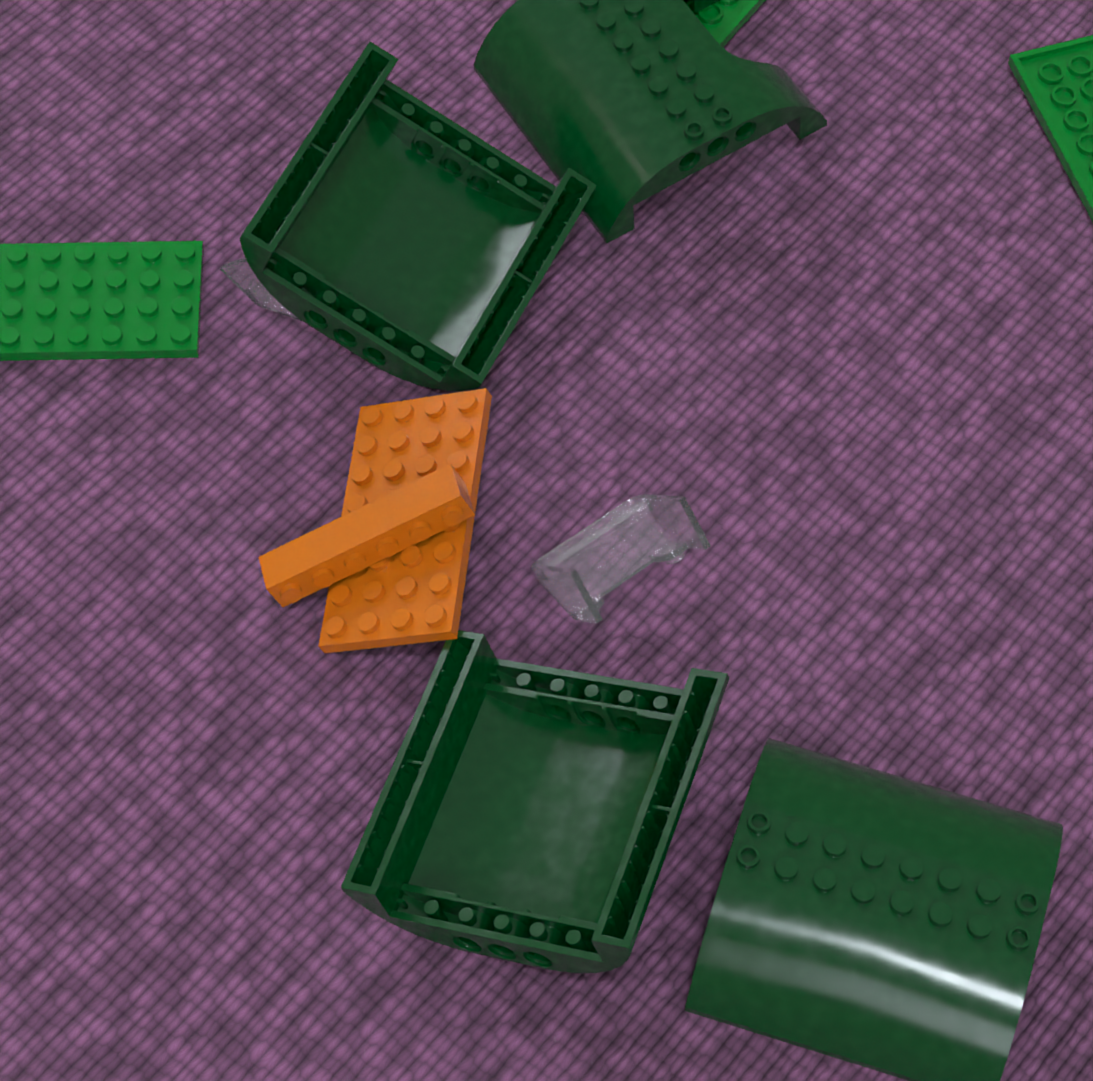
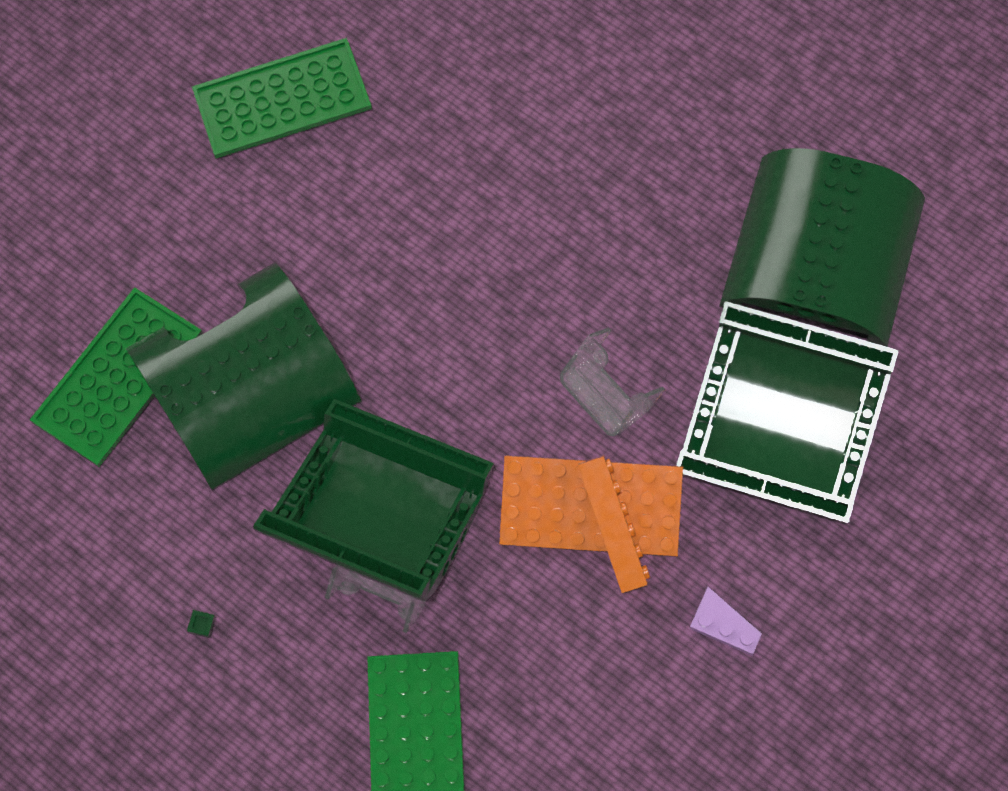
camera: 85 degrees left, 10 degrees up
(199, 711) = (724, 624): none -> lavender wing
(272, 53) = (201, 624): none -> dark green plate

